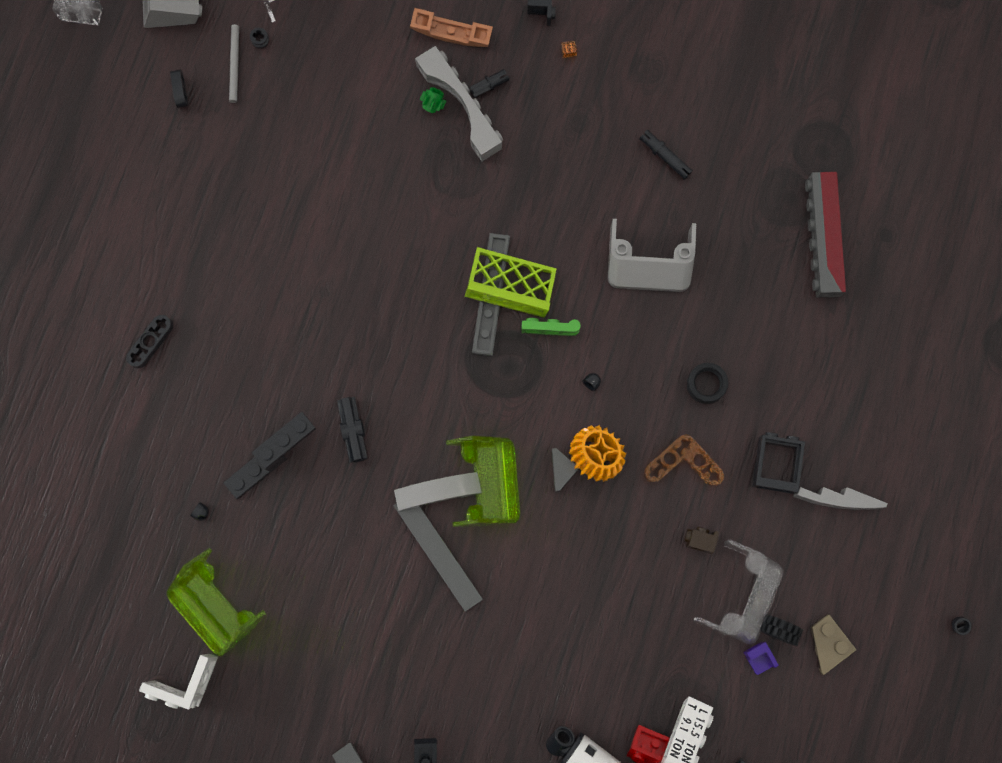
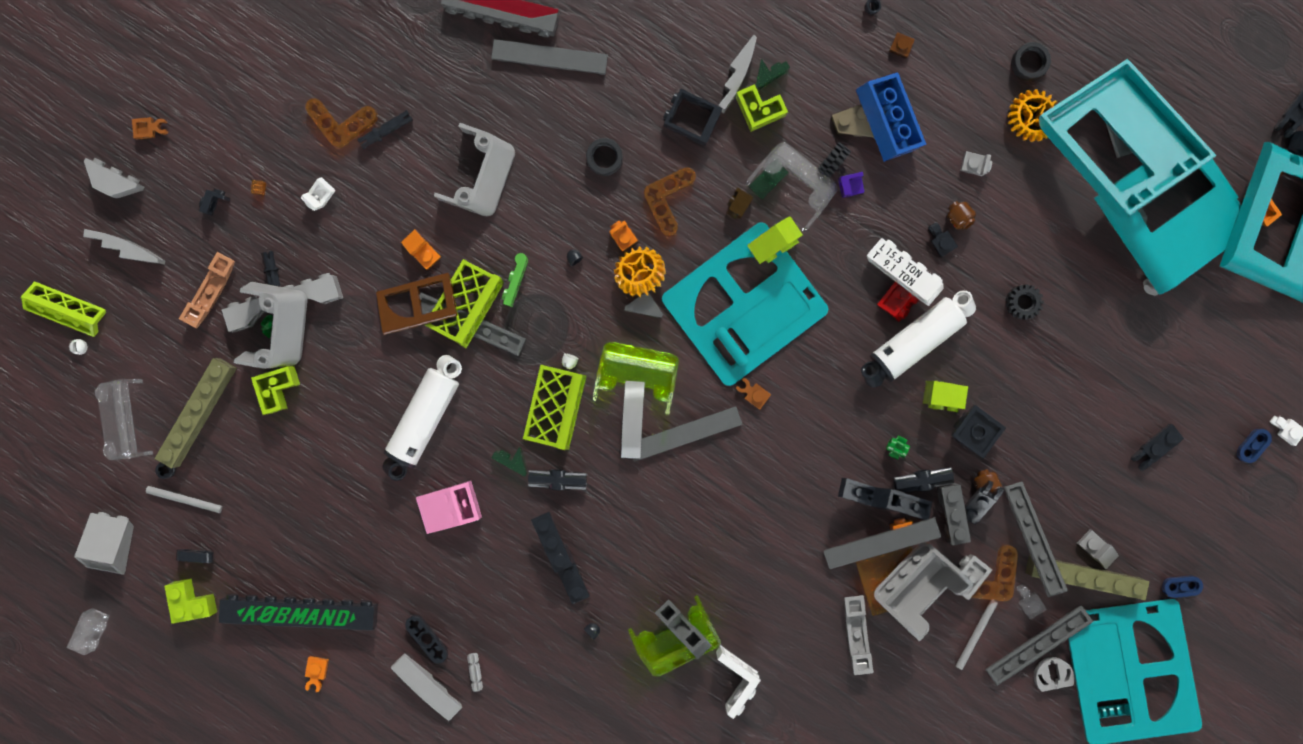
camera: 80 degrees left, 10 degrees up
(89, 239) = (316, 670): none -> orange plate
(98, 354) = (426, 687): none -> light grey slope
(126, 93) = (184, 605): none -> lime brick
(126, 400) = (475, 673): none -> light grey axle
(145, 205) = (298, 612): none -> black brick
(224, 609) = (683, 629): none -> dark grey arch
(293, 326) = (449, 507): none -> bright pink slope
(324, 50) = (195, 413): none -> olive brick
(358, 382) = (516, 464): none -> clear green slope
(369, 113) = (270, 387): none -> lime brick
(379, 271) = (421, 417): none -> white piece
(426, 423) = (570, 412): none -> lime fence
(437, 112) = (287, 330): none -> light grey windscreen
(470, 216) = (394, 323): none -> reddish brown window
(481, 407) = (569, 361): none -> white hinge
(500, 617) = (755, 395): none -> dark orange plate
(553, 224) = (421, 249): none -> orange slope
(579, 108) = (318, 194): none -> white bracket
(586, 601) = (762, 318): none -> teal door
(630, 425) = (622, 235): none -> orange bracket
(653, 112) = (342, 129): none -> clear orange beam
(678, 591) = (776, 239): none -> lime brick
(734, 564) = (767, 182): none -> clear green slope
(793, 298) = (549, 57): none -> dark grey tile
(806, 535) = (757, 112): none -> lime brick
(846, 530) = (766, 76): none -> clear green slope
(848, 679) = (890, 116): none -> blue brick
(930, 670) = (901, 45): none -> reddish brown plate

